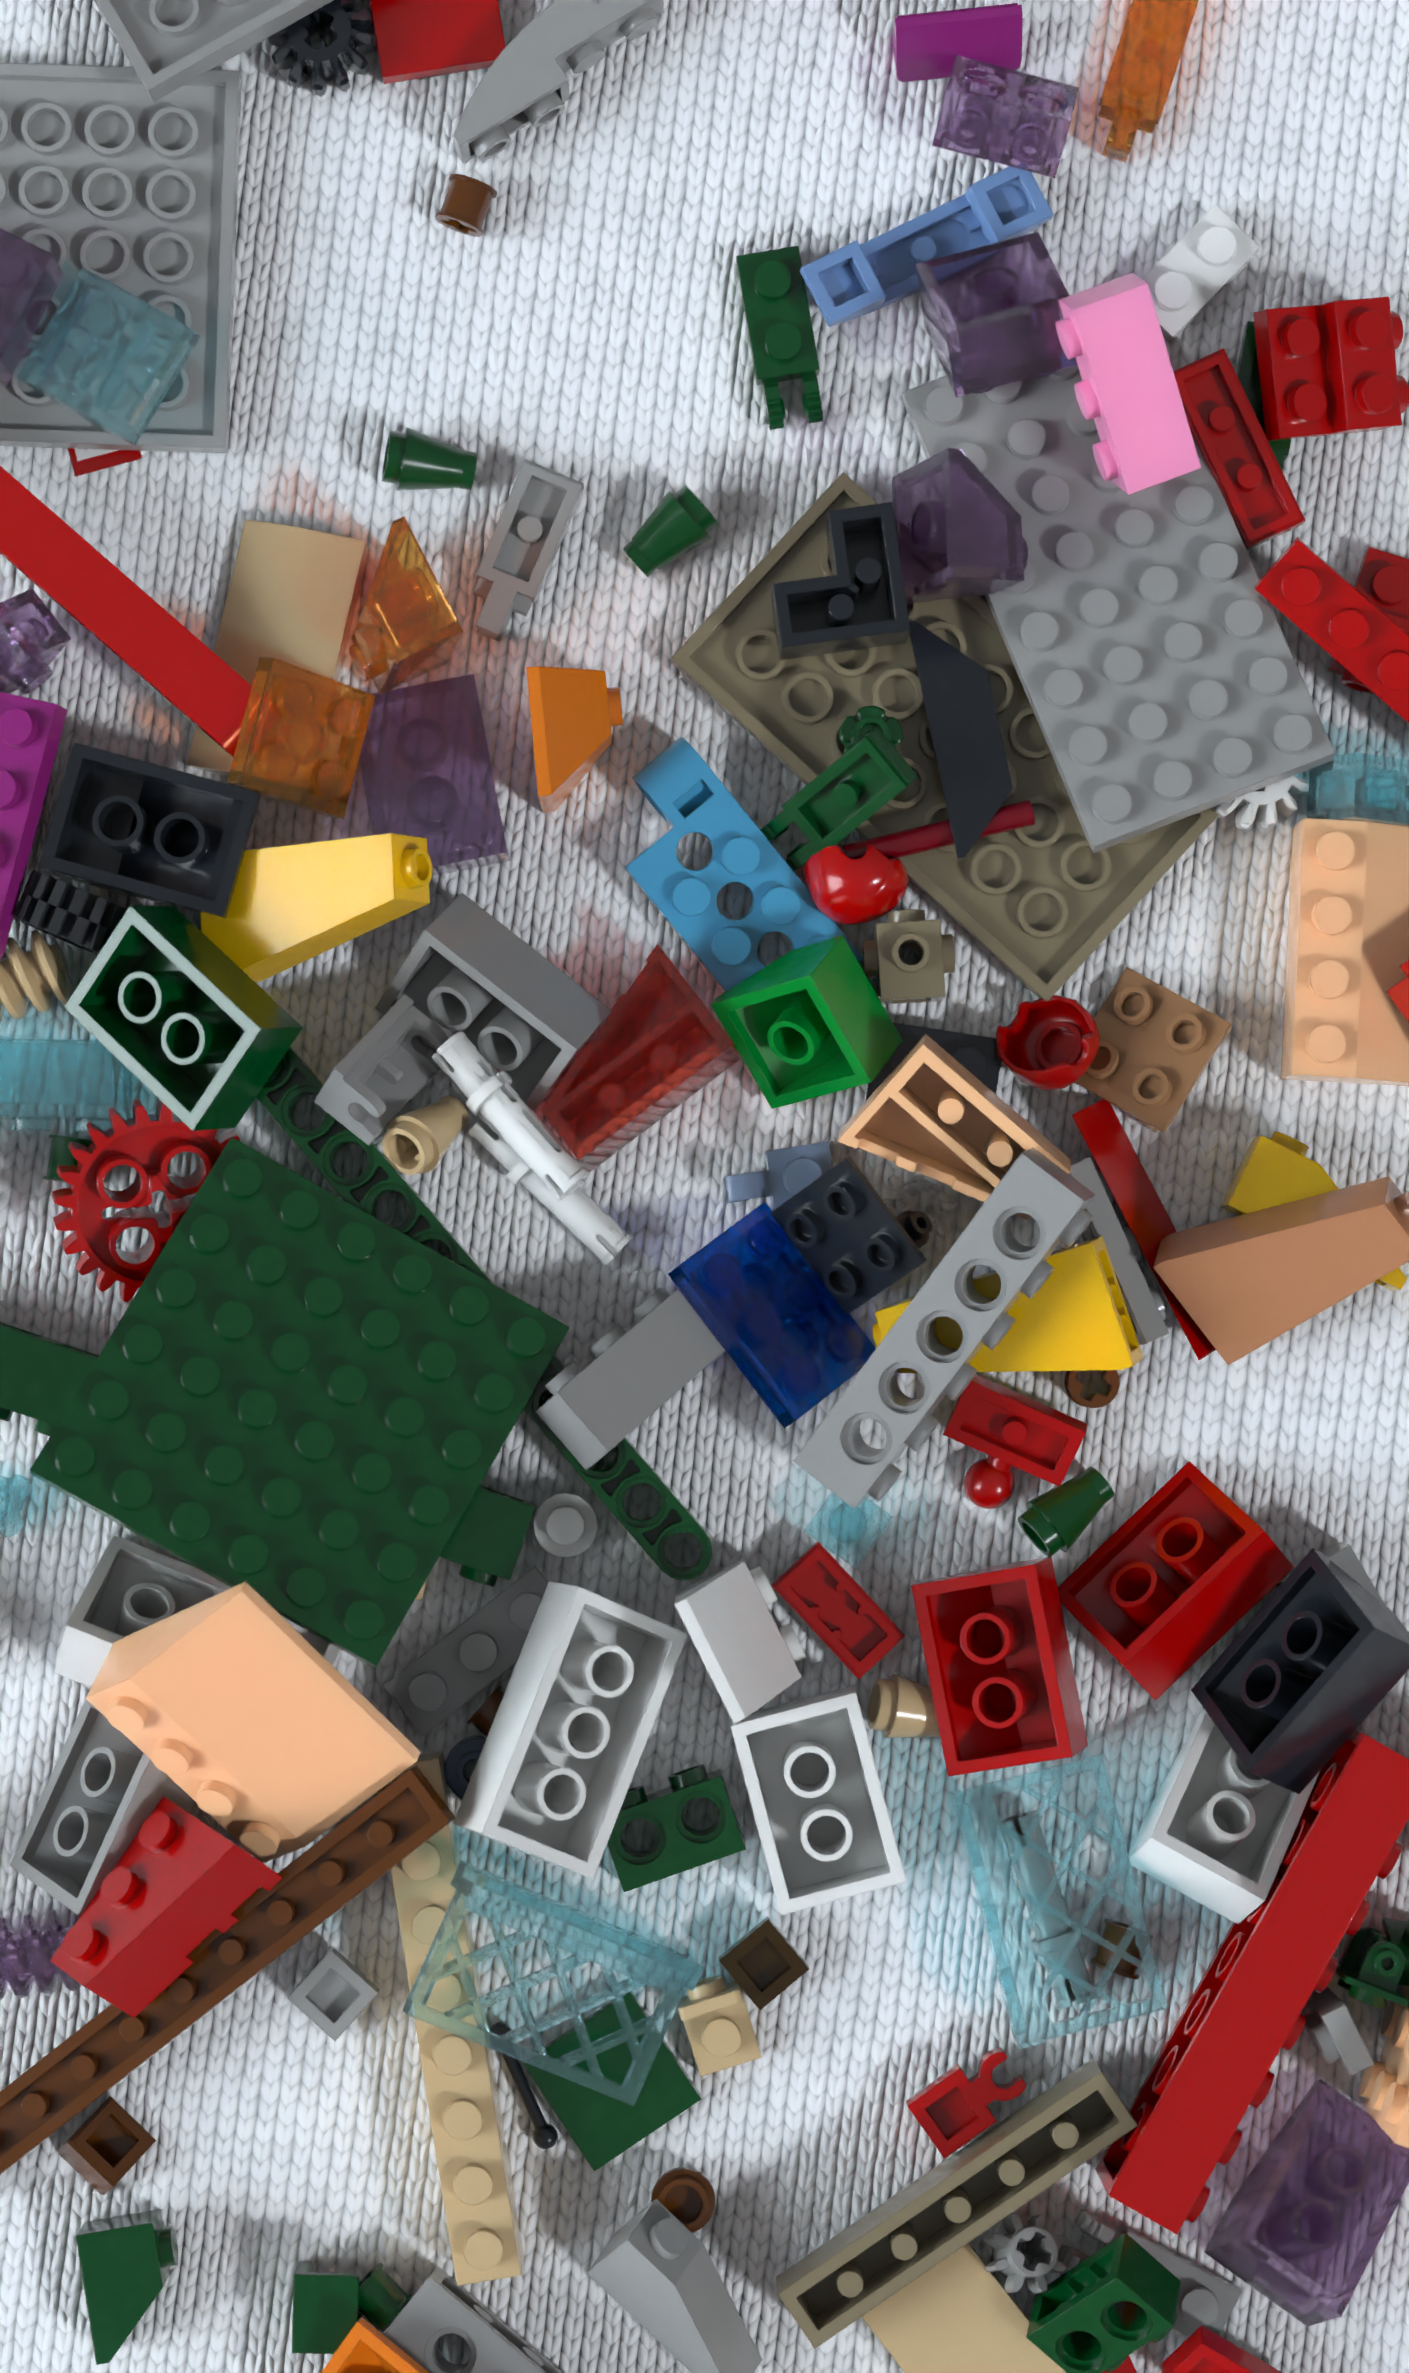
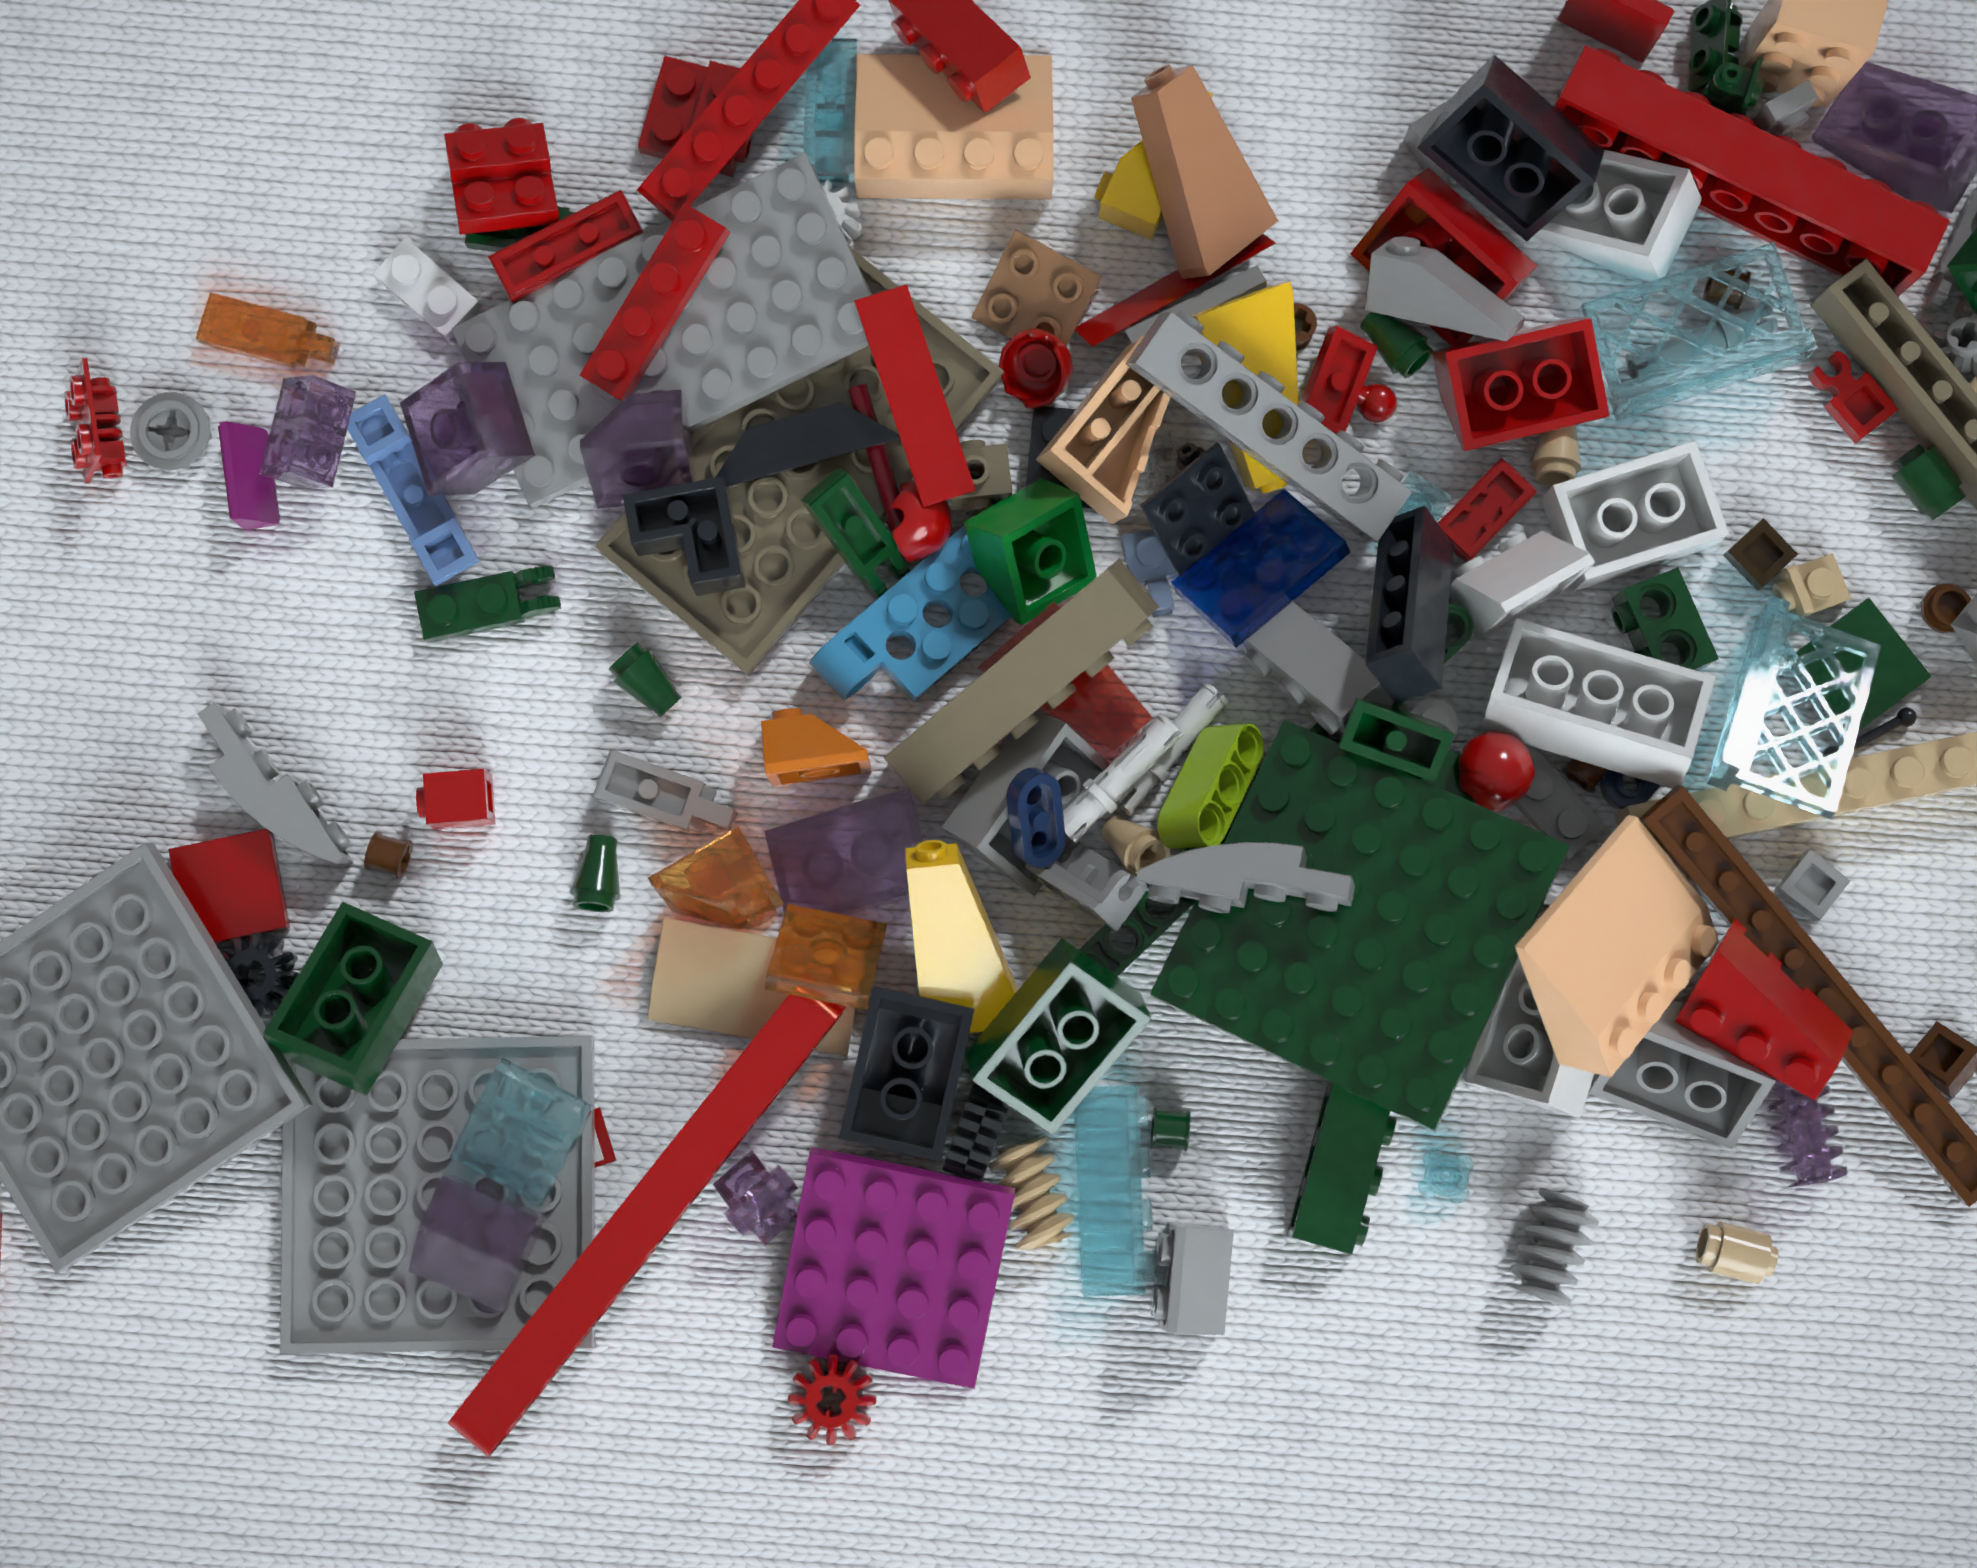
camera: 90 degrees left, 5 degrees down
(147, 1145) = (1160, 1062): red gear -> none
(281, 155) = (354, 998): none -> dark green brick
(367, 1236) = (1224, 873): none -> light grey slope
(472, 1005) = (1036, 809): none -> dark blue plate
(492, 1231) = (1210, 786): none -> lime beam
(493, 1593) = (1495, 770): none -> red hair
(530, 291) = (456, 799): none -> red brick
(532, 1463) = (1396, 738): none -> dark green slope
(629, 997) = (1022, 681): none -> dark tan brick
(703, 1494) = (1410, 606): none -> black brick
(848, 2189) = (1928, 481): none -> dark green brick
(867, 719) = (791, 516): dark green plate -> none
(1008, 878) = (914, 395): none -> red sticker
(1120, 1562) = (1433, 290): none -> light grey slope
(1127, 384) = (522, 316): bright pink brick -> none
(1146, 555) = (655, 303): none -> red plate

